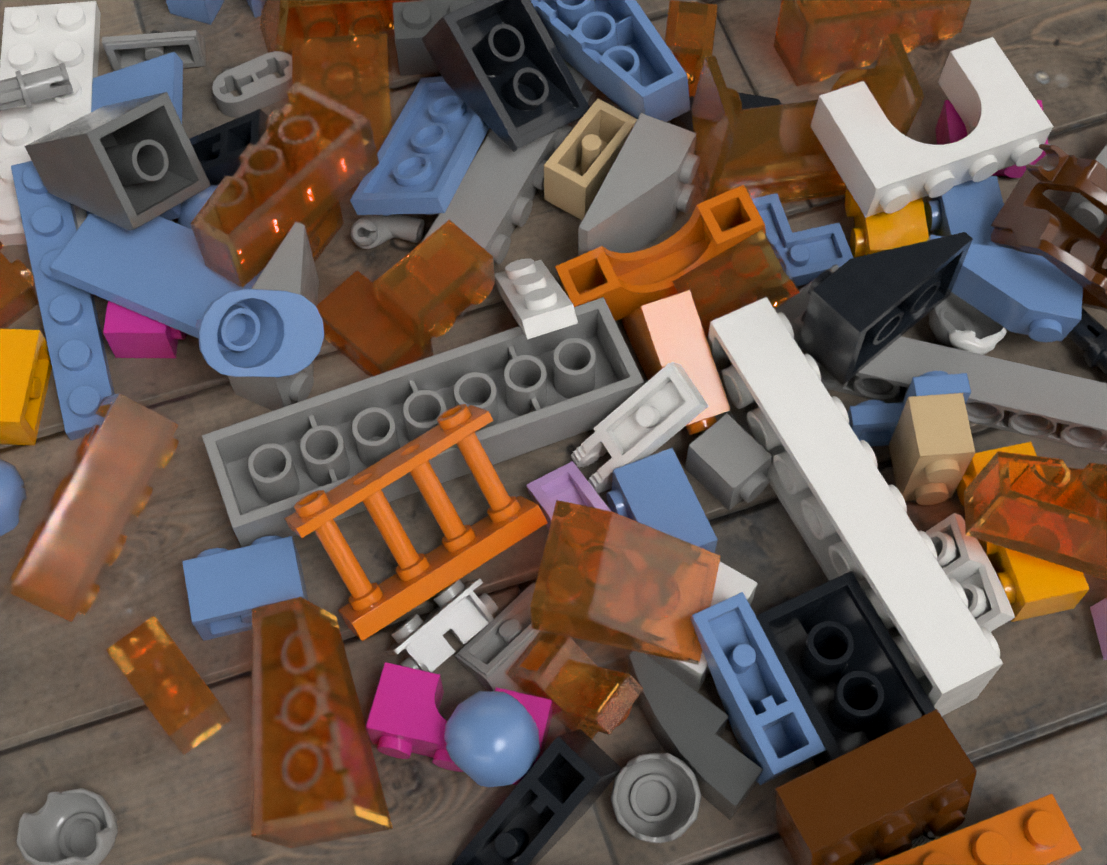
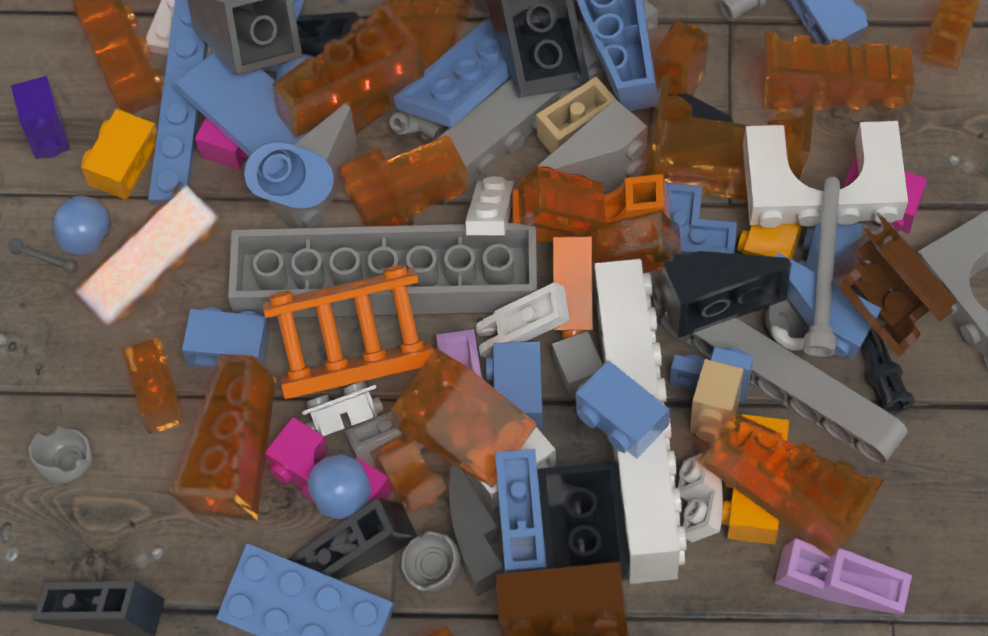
camera: 25 degrees right, 0 degrees up
(630, 259) = (561, 202): none -> clear orange brick
(846, 498) = (621, 410): none -> medium blue brick
(1034, 324) = (820, 338): none -> light grey piece

